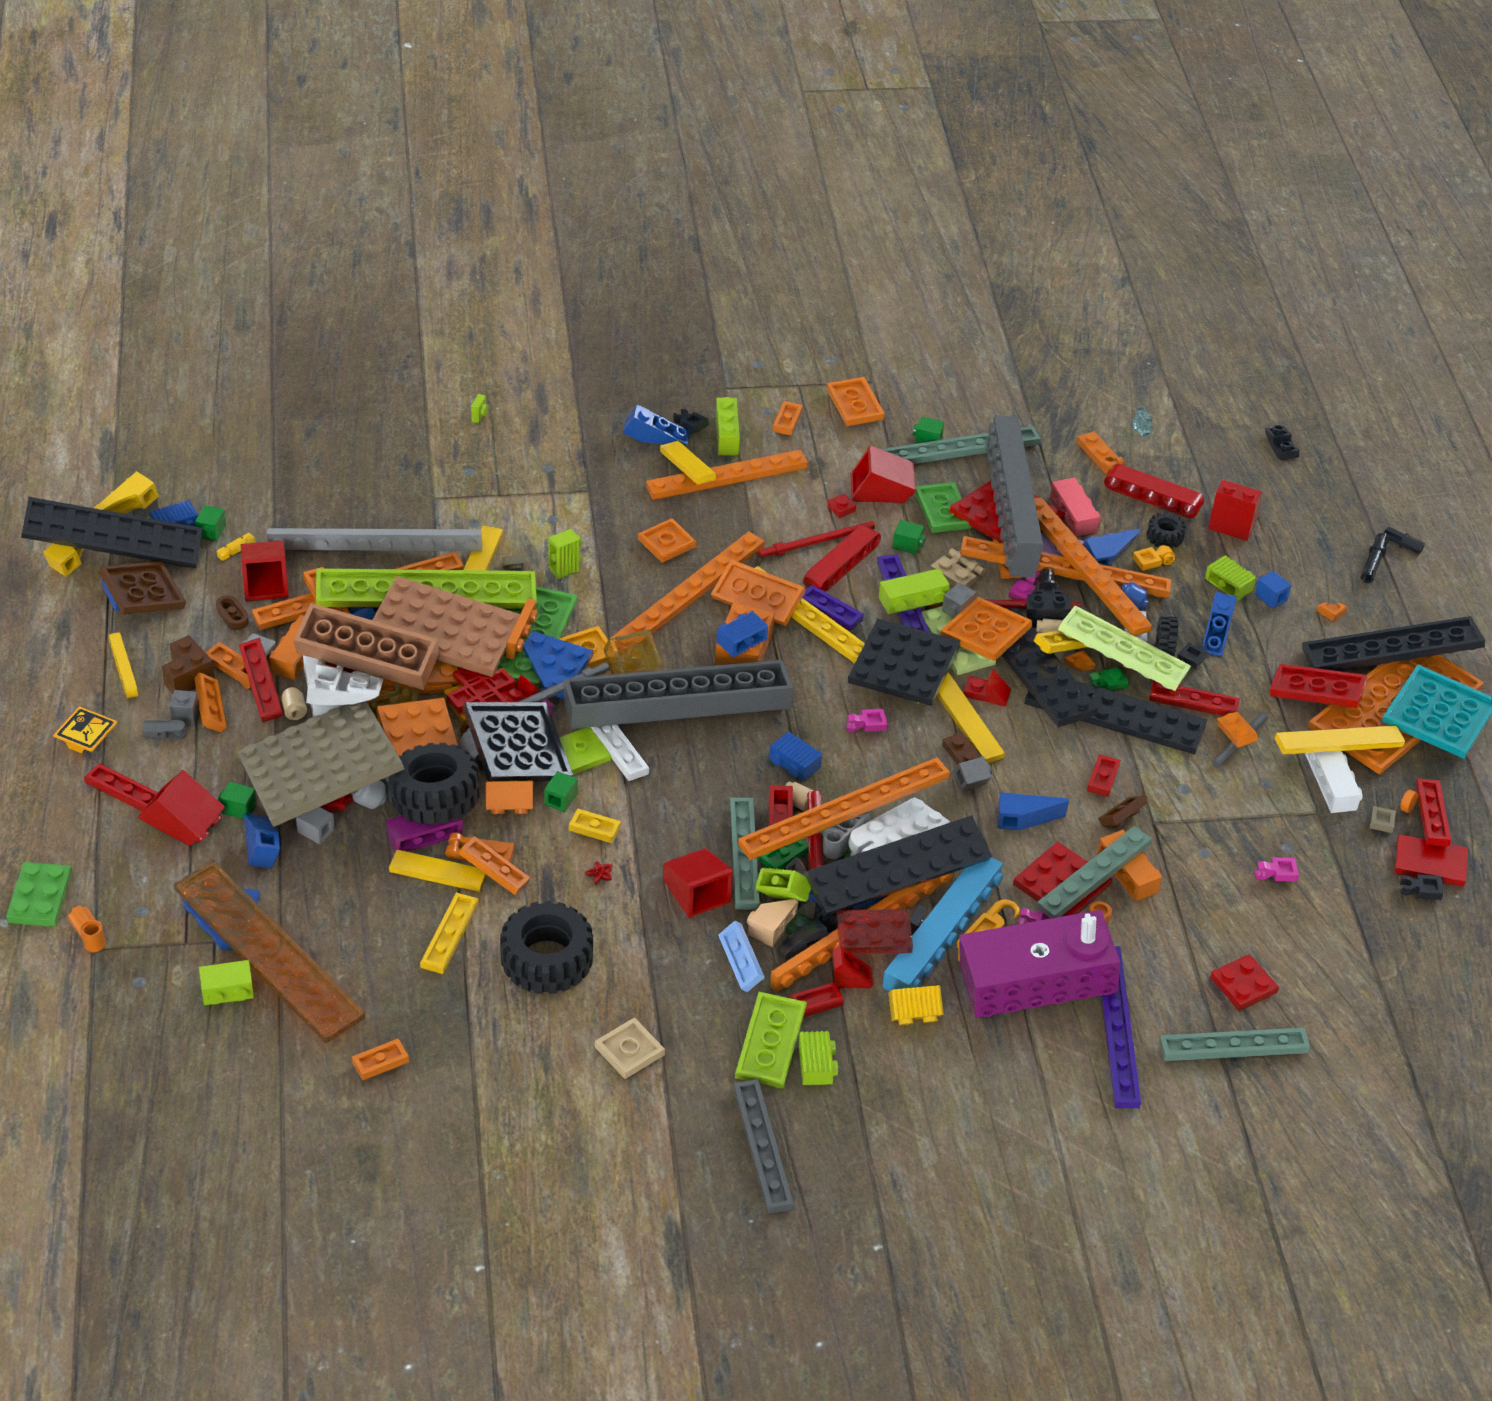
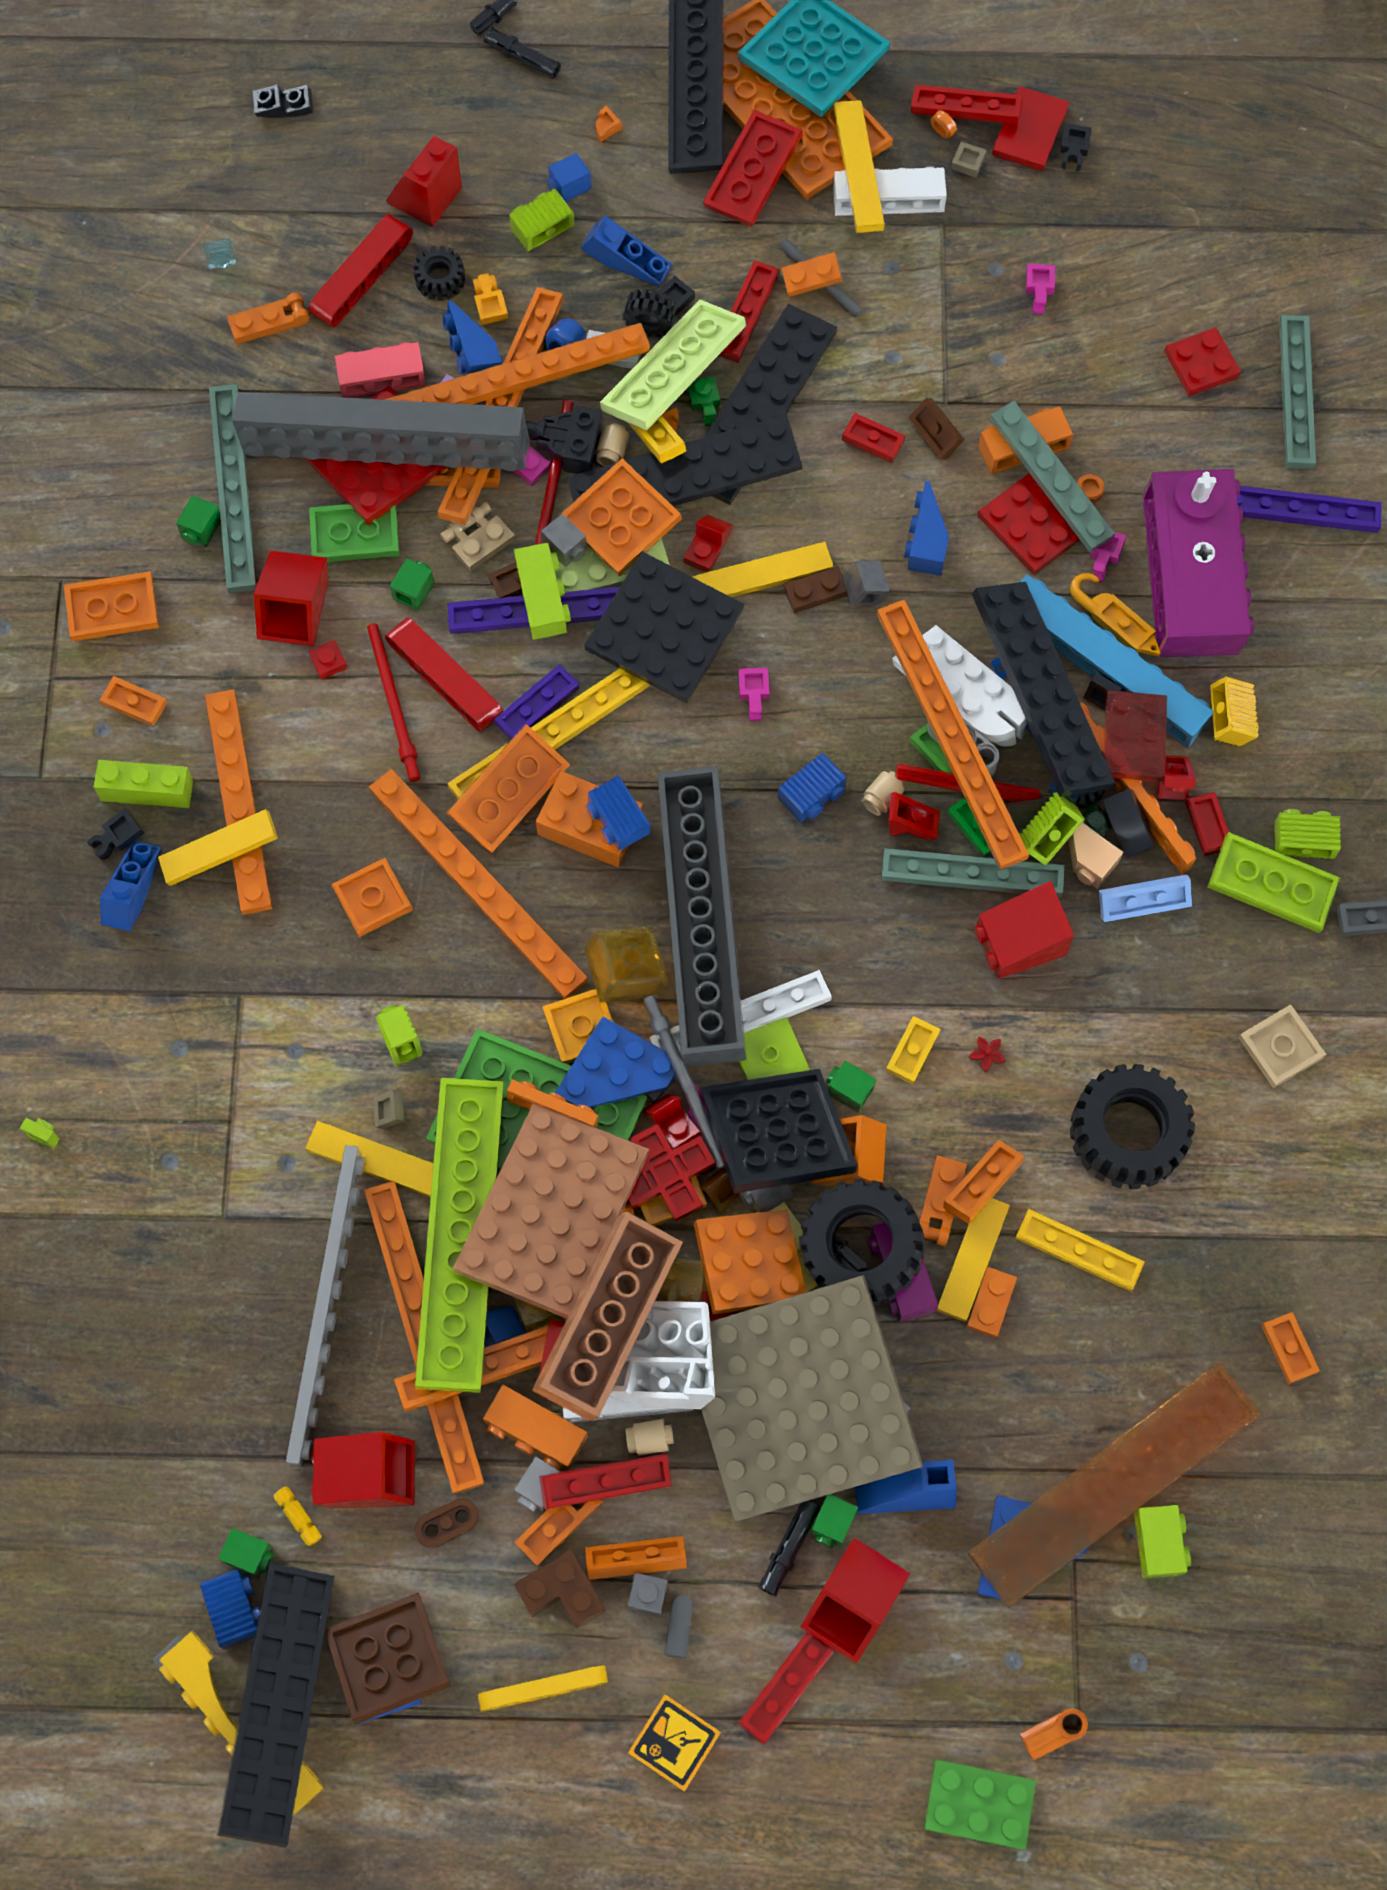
camera: 80 degrees left, 25 degrees up
(210, 777) = (786, 1553): none -> black pin
(404, 883) = (991, 1302): none -> orange plate

